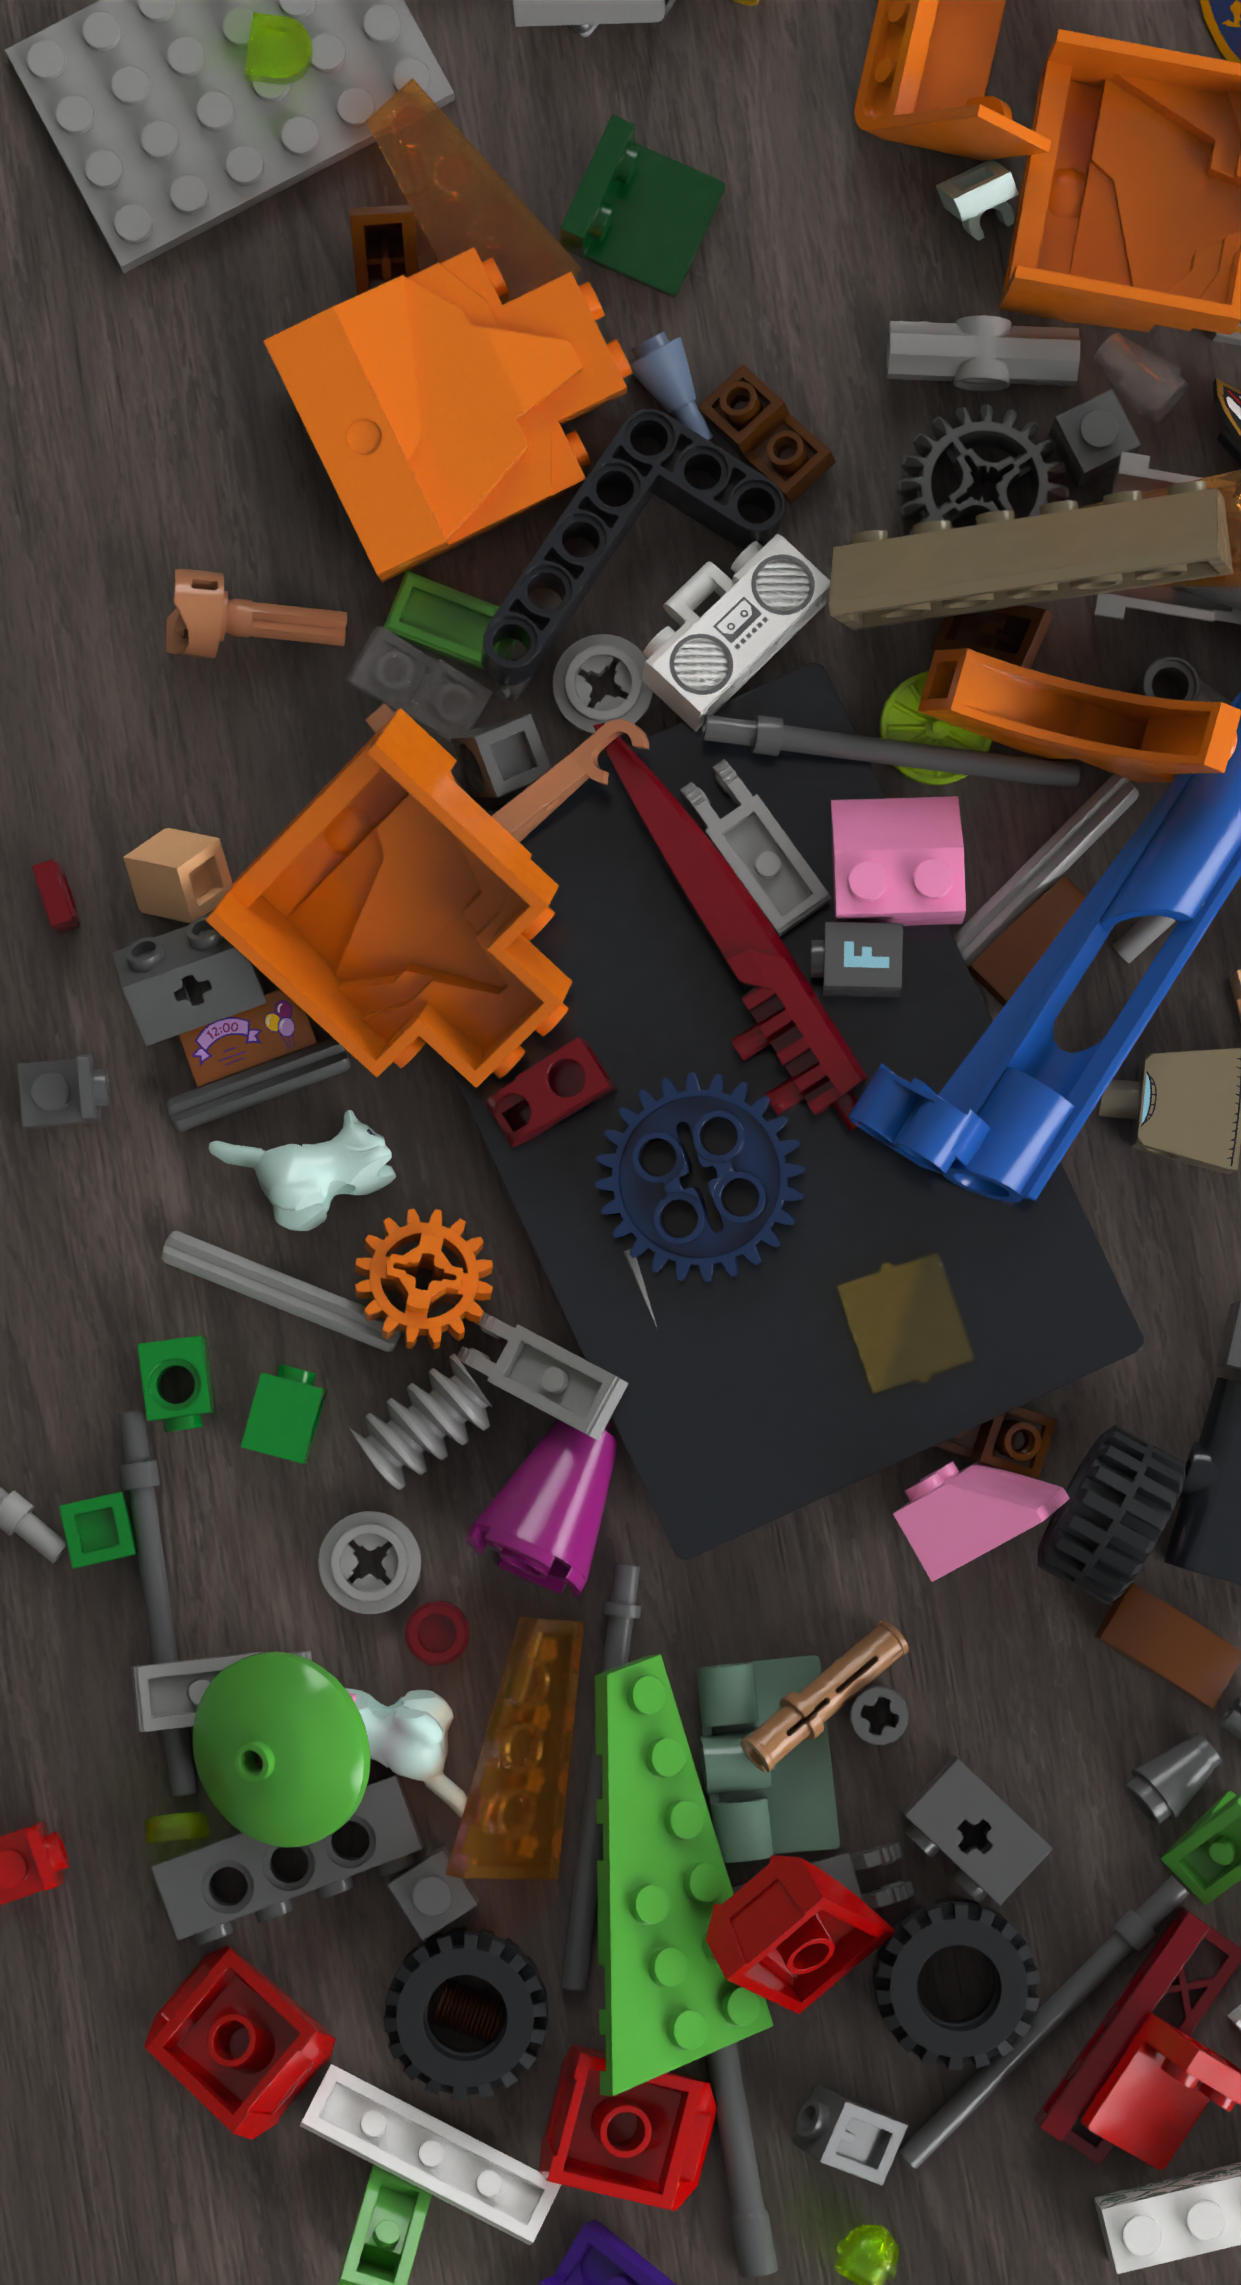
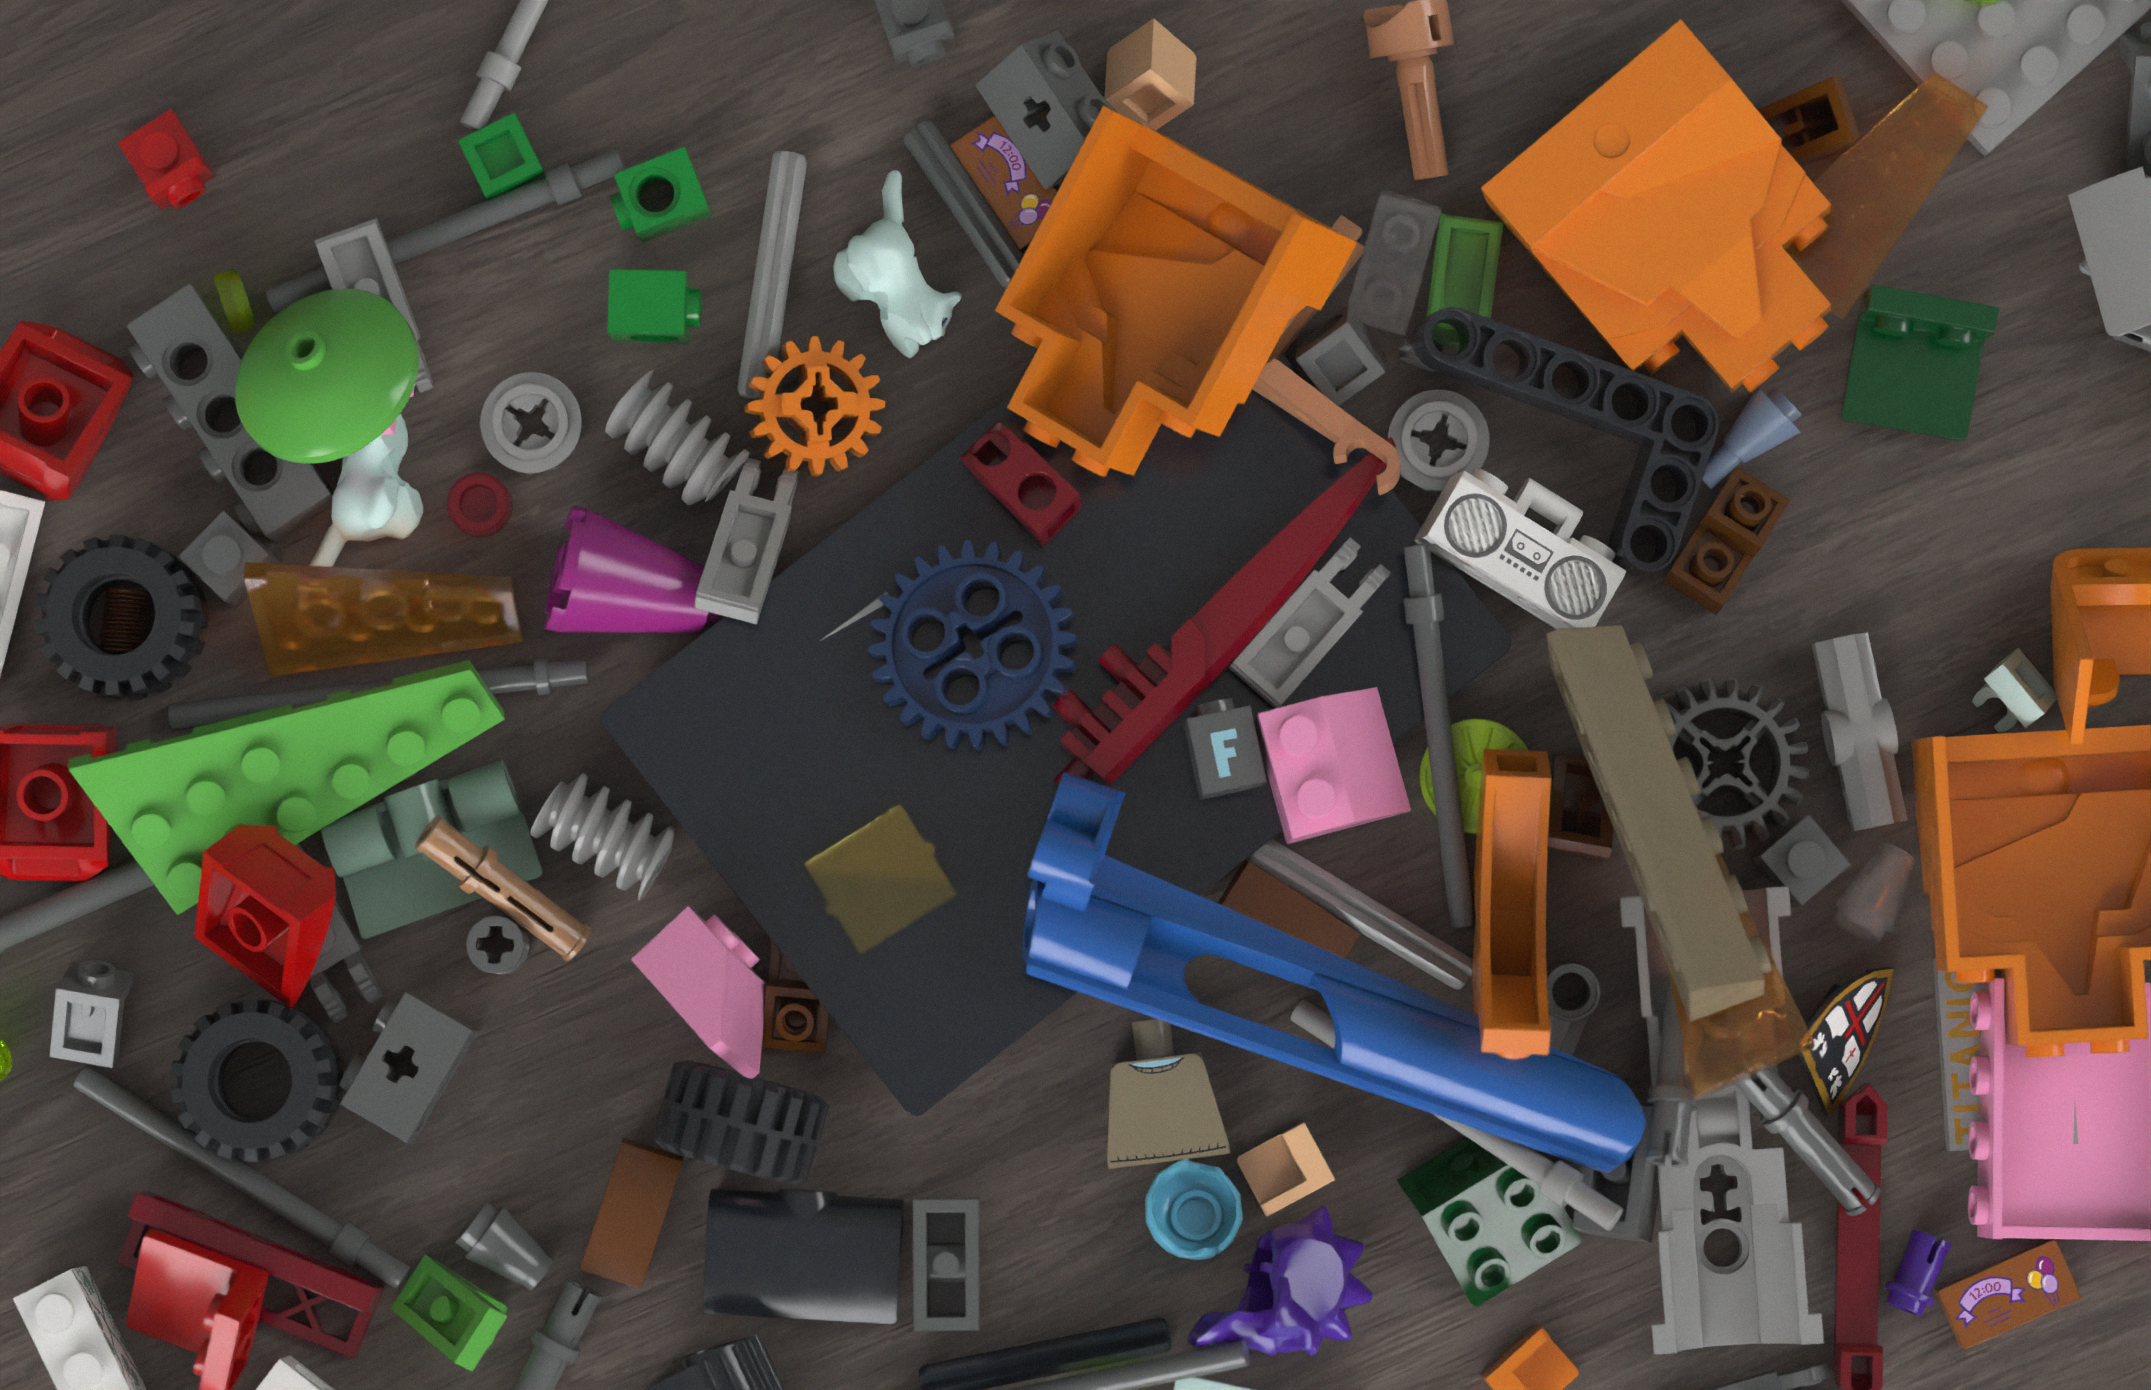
camera: 80 degrees right, 0 degrees up
(794, 1582) = (605, 834): none -> light grey piece

